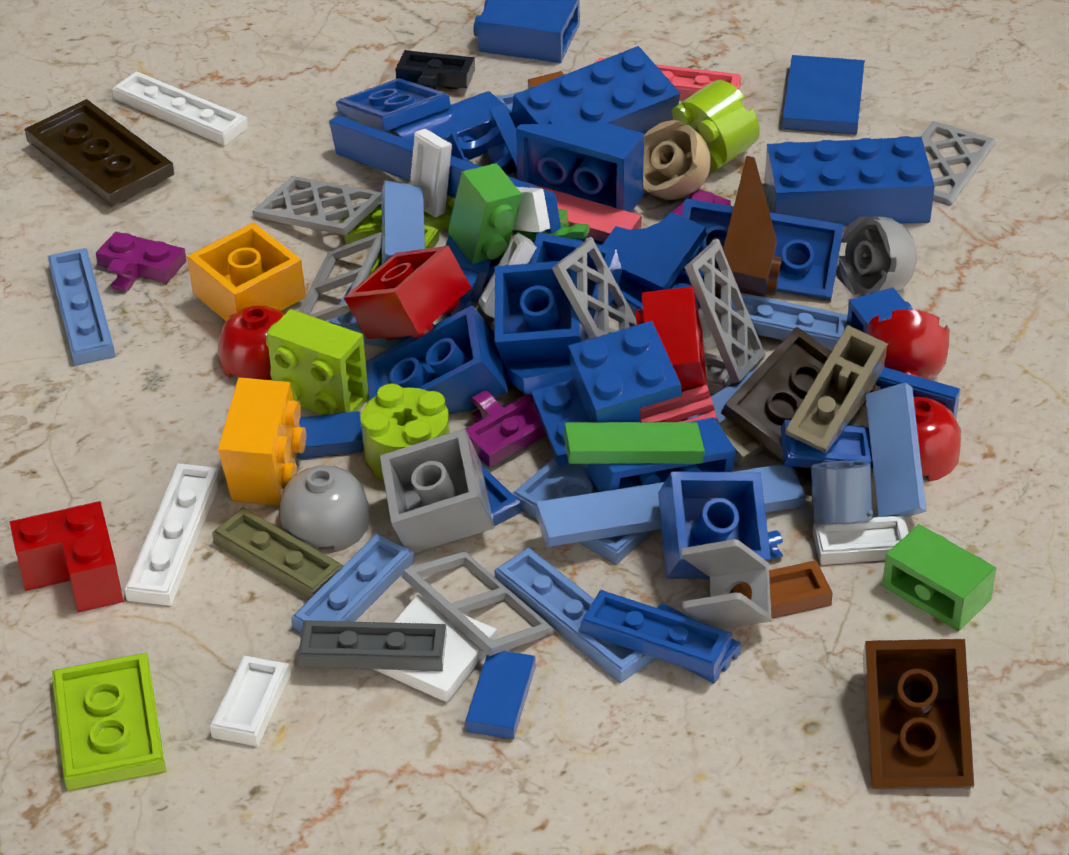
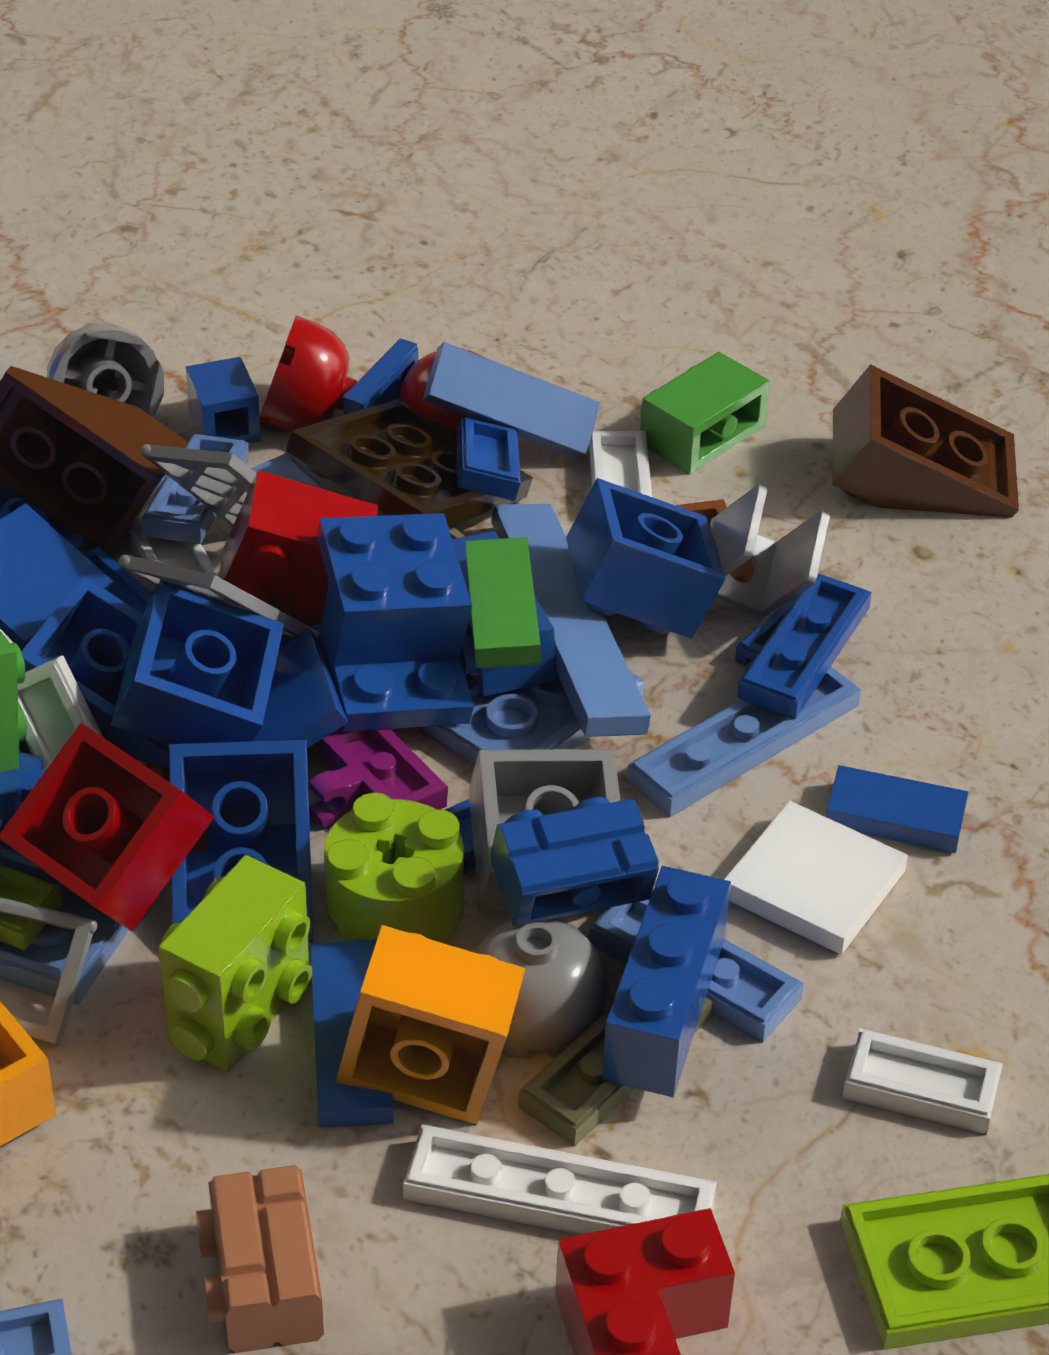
camera: 90 degrees left, 0 degrees up
(126, 410) = (264, 1259): none -> nougat brick
(243, 342) = (117, 1077): red cylinder -> none
(302, 548) = (666, 981): none -> blue brick
(372, 645) = (837, 924): dark grey tile -> none
(373, 479) = (573, 860): none -> blue brick
(455, 610) = (759, 836): light grey window -> none
(838, 389) = (427, 404): dark tan slope -> none
(841, 492) = (571, 453): sand blue piece -> none

